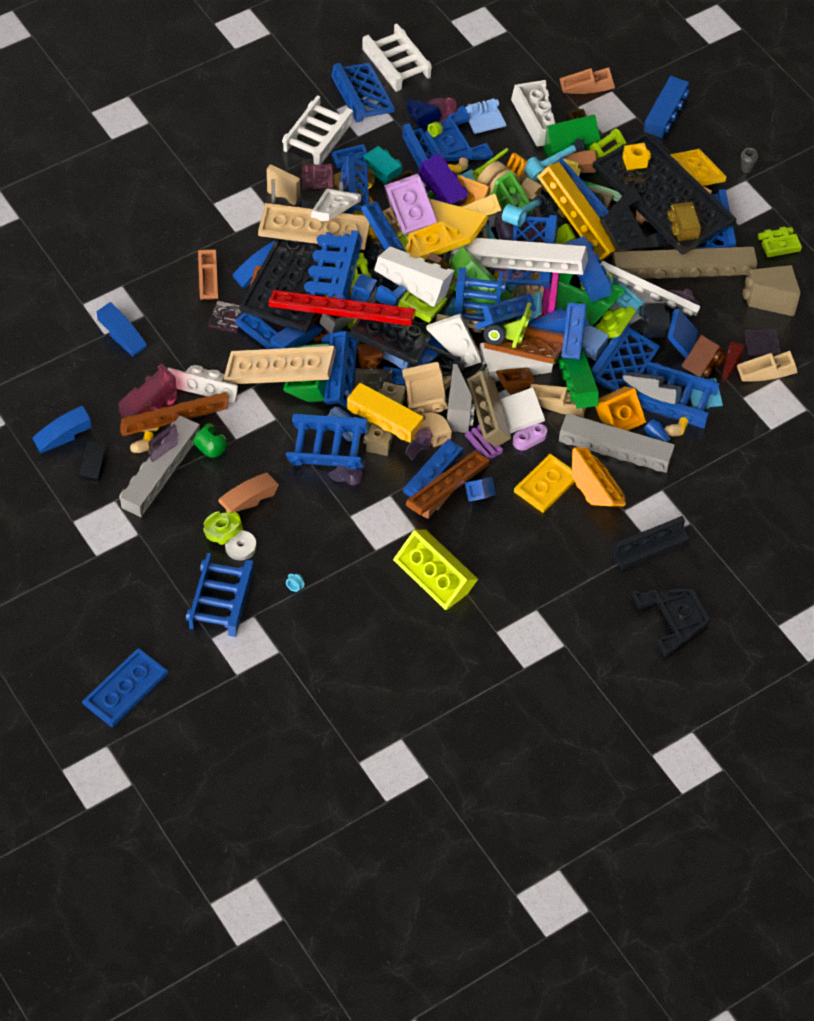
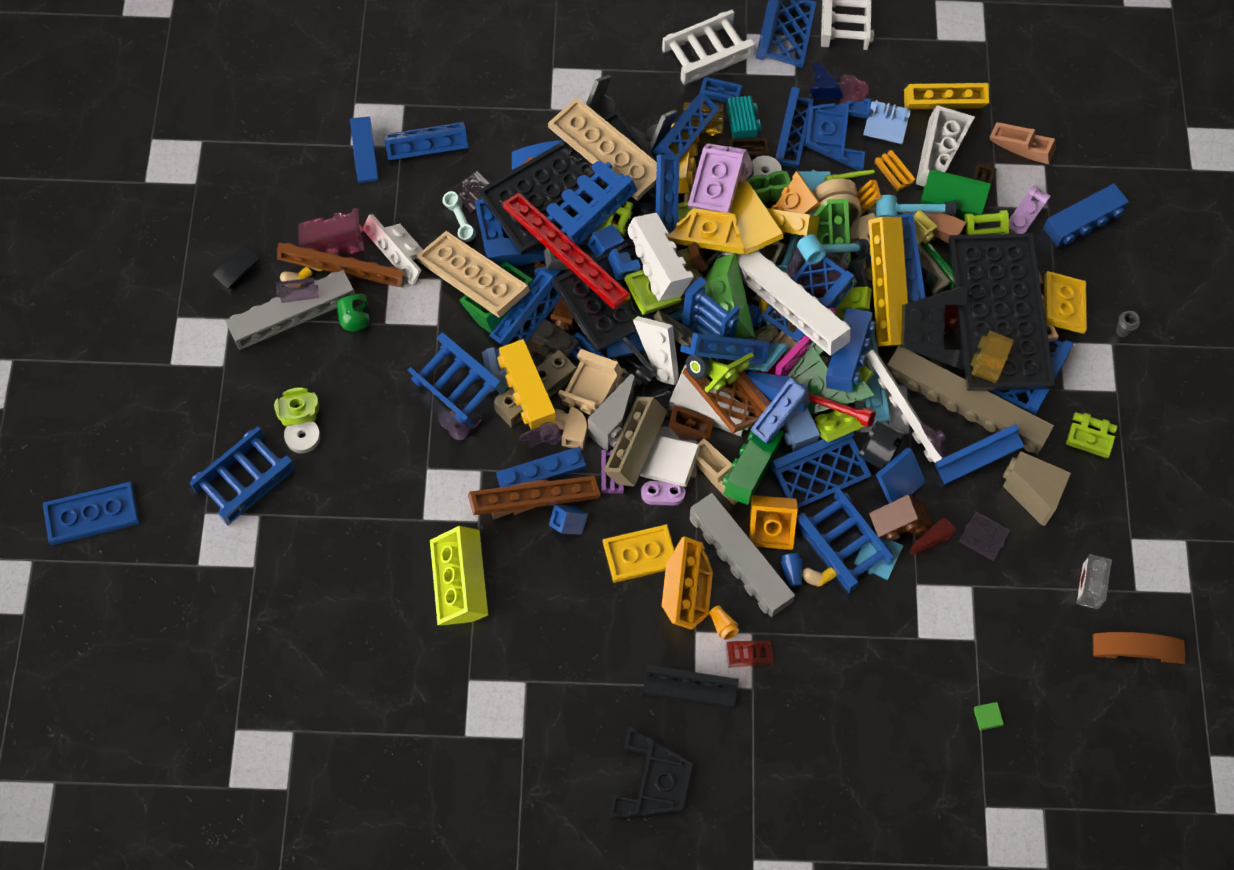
camera: 35 degrees right, 10 degrees up
(62, 429) = (234, 220): blue slope -> none
(162, 299) = (426, 141): none -> blue fence
(208, 274) = (486, 139): nougat slope -> none
(220, 331) = (454, 203): none -> light aqua bar
(249, 493) = (344, 388): nougat slope -> none
(285, 184) = (625, 86): tan tile -> none
(295, 582) = (319, 505): medium azure plate -> none
(317, 176) = (672, 94): clear pink piece -> none
(333, 203) = (637, 134): white wing -> none
(435, 129) = (820, 109): lime hinge -> none
(442, 181) = (772, 172): dark purple wedge -> none
(460, 167) = (817, 163): arm -> none
(516, 145) = (897, 169): none -> light orange tile
(518, 74) = (947, 96): none -> yellow brick
(625, 124) = (1027, 211): none -> lavender plate
(633, 303) = (864, 416): none -> red piece
(636, 156) = (998, 247): yellow brick -> none
(640, 492) = (724, 624): none -> light orange cone
(654, 387) = (819, 519): slope -> none
(665, 512) = (750, 661): none -> clear red slope
(721, 291) = (979, 454): none -> blue fence
(767, 367) = (966, 568): tan slope -> none

